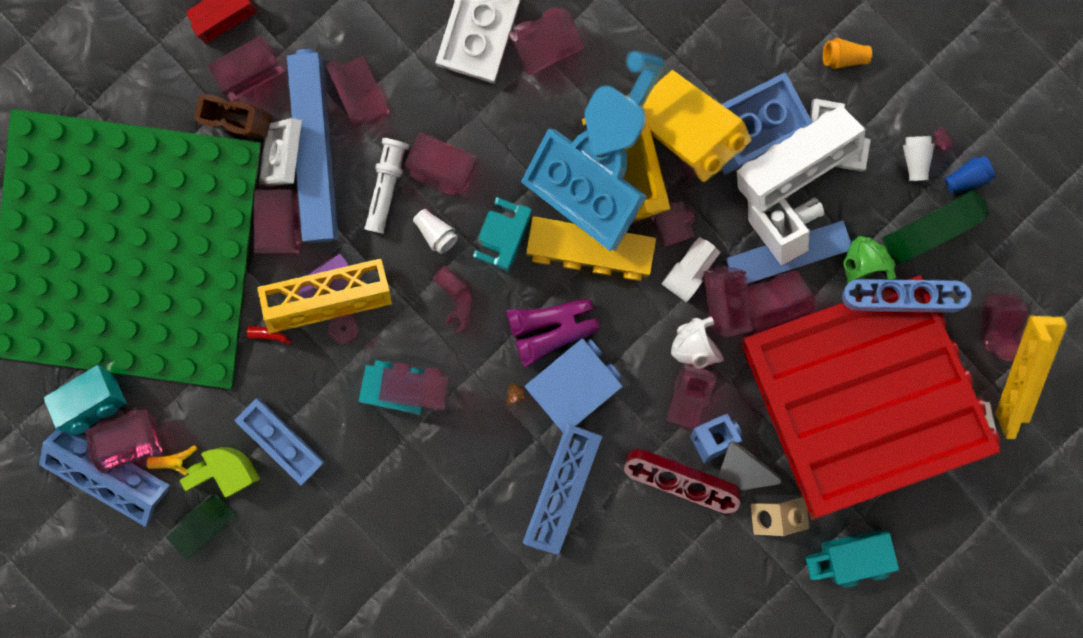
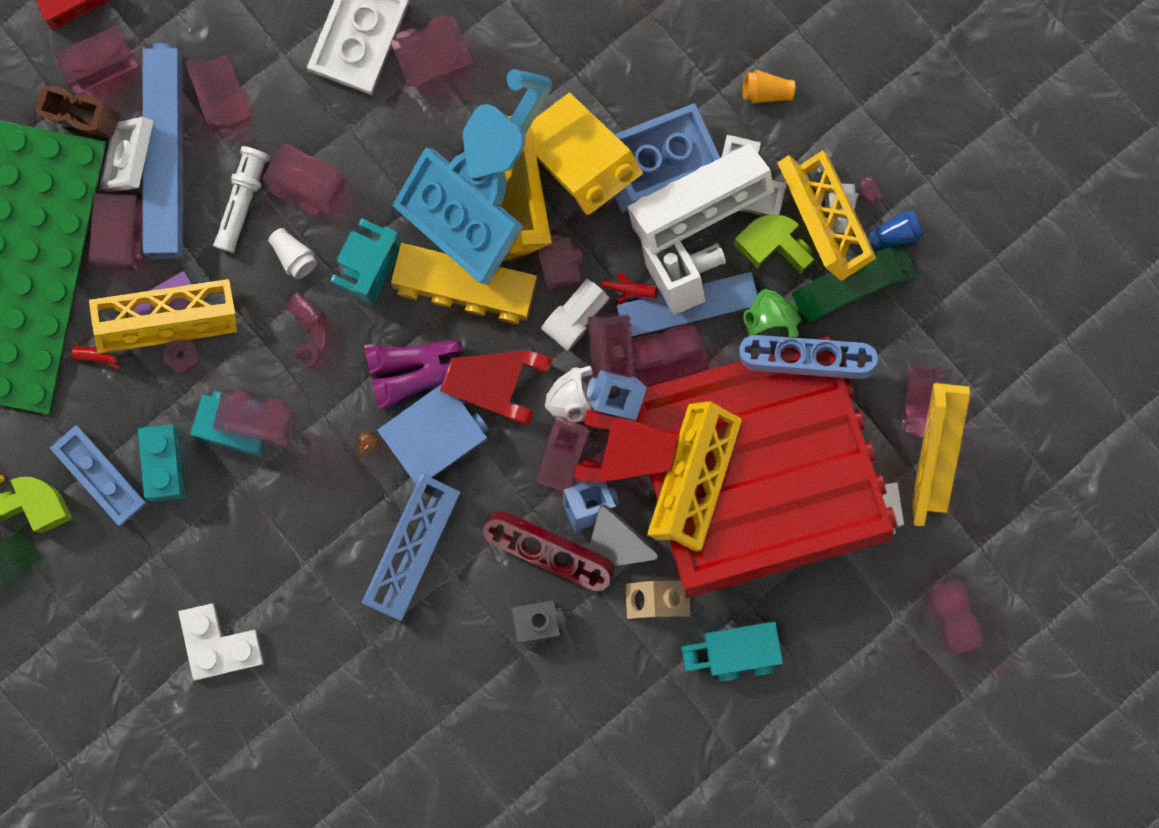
camera: 10 degrees right, 5 degrees down
(334, 428) = (161, 463): none -> teal brick
(392, 590) = (209, 651): none -> white plate
(621, 334) = (491, 379): none -> red flag
(677, 544) = (537, 621): none -> dark grey brick
(738, 243) = (631, 289): none -> red bar
(739, 343) = (625, 400): none -> medium blue brick
(754, 391) = (630, 449): none -> red flag
(811, 409) = (689, 470): none -> yellow fence
(863, 187) = (770, 235): none -> lime brick
(905, 172) = (815, 218): none -> yellow fence
(1044, 516) = (957, 626): none -> clear pink brick

